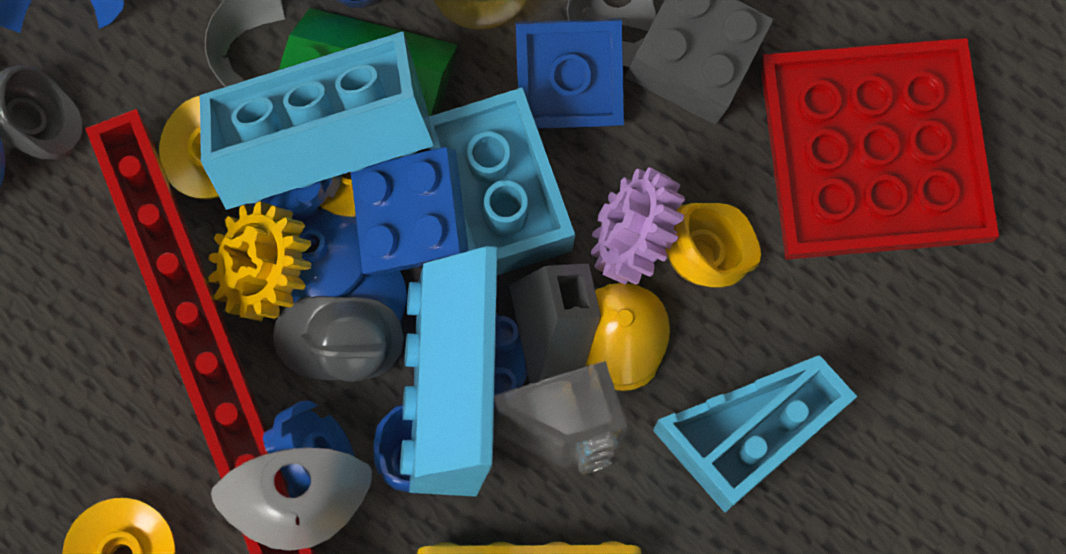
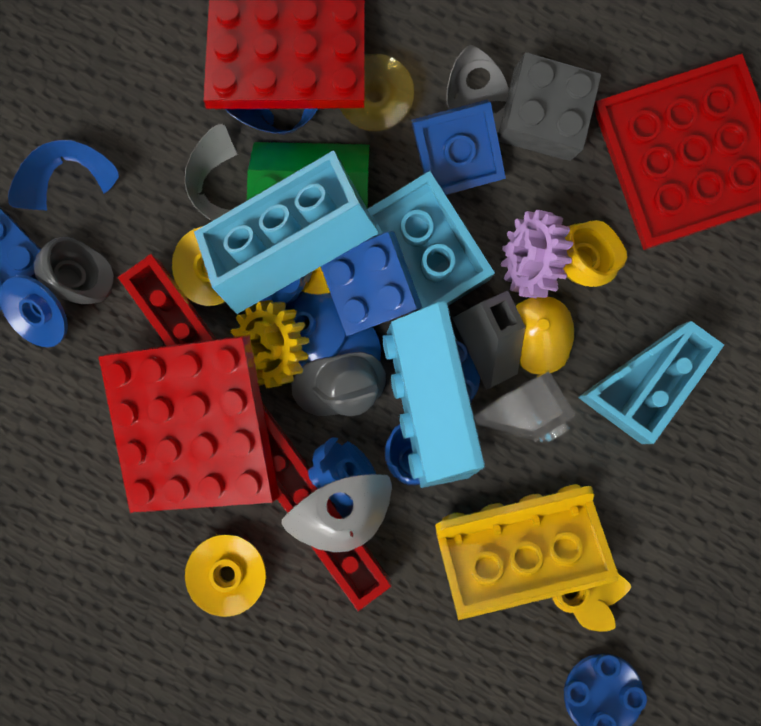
camera: 10 degrees left, 10 degrees up
(125, 339) = (190, 425): none -> red plate

